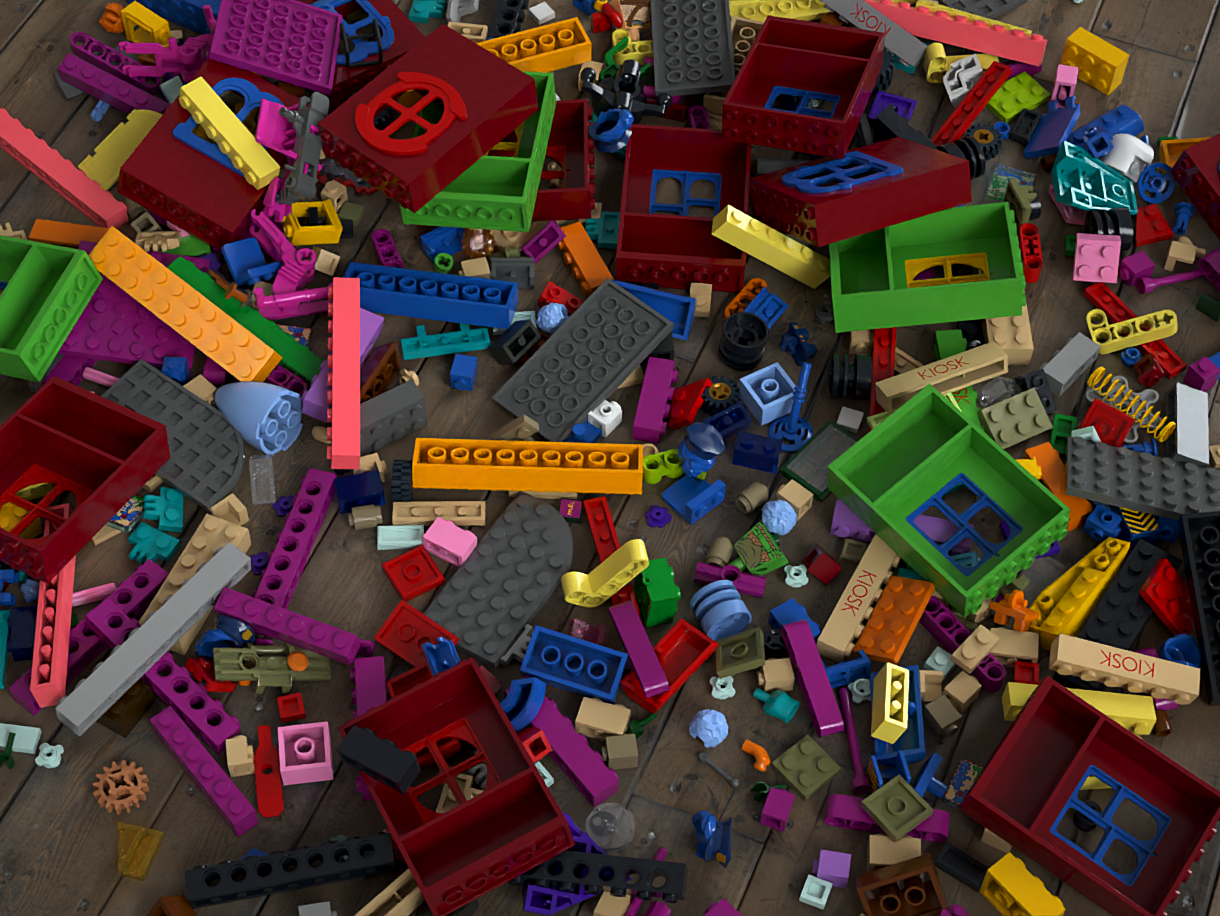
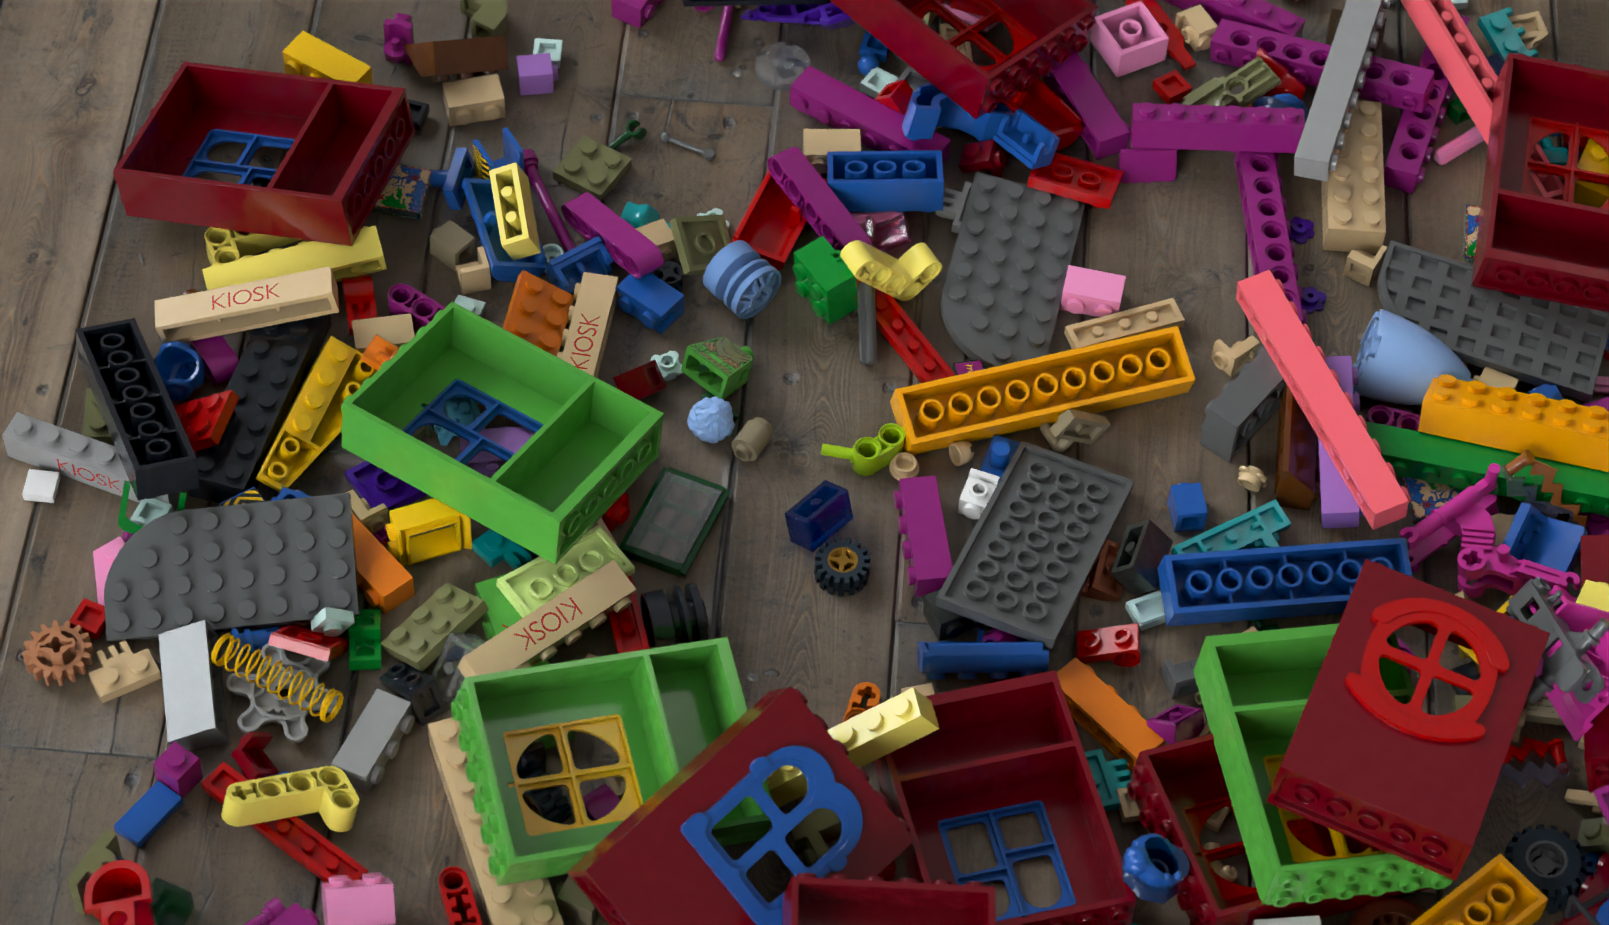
camera: 160 degrees right, 0 degrees up
(151, 544) = (1431, 215): teal hinge -> none
(165, 508) = (1446, 244): teal hinge -> none
(262, 479) = (1353, 310): clear slope -> none
(359, 491) = (1224, 323): clear blue brick -> none
(365, 517) = (1207, 297): dark tan brick -> none
(400, 537) = (1156, 291): light aqua tile -> none
(402, 480) = (1190, 332): black wheel -> none
(413, 573) = (1121, 255): red tile -> none
(551, 317) = (1105, 606): light blue piece -> none
(620, 751) = (793, 121): dark tan brick -> none
(658, 516) = (861, 401): dark purple plant -> none
(686, 403) = (880, 537): red wing -> none
(694, 497) = (822, 420): blue bracket -> none
(699, 448) = (836, 455): dark blue piece -> none
(709, 727) = (712, 168): light blue piece -> none
(713, 837) = (670, 62): piece -> none
(719, 552) = (768, 361): dark tan brick -> none
(743, 341) = (836, 634): black wheel -> none
(744, 582) = (748, 332): magenta piece -> none
(757, 452) = (764, 495): clear blue brick -> none
(759, 753) = (647, 166): orange arm -> none
(767, 307) = (830, 697): blue plate -> none
(767, 393) = (776, 573): light blue brick -> none
(777, 809) = (610, 113): magenta brick -> none
(791, 426) = (731, 552): blue dish -> none
(796, 343) = (750, 661): dark blue hips -> none
(796, 496) = (698, 450): tan brick -> none
(847, 813) = (529, 128): magenta beam -> none
(850, 419) = (658, 580): white tile -> none
(897, 808) = (480, 118): olive plate -> none
(962, 691) = (435, 276): tan brick -> none
(975, 649) = (431, 298): tan plate -> none

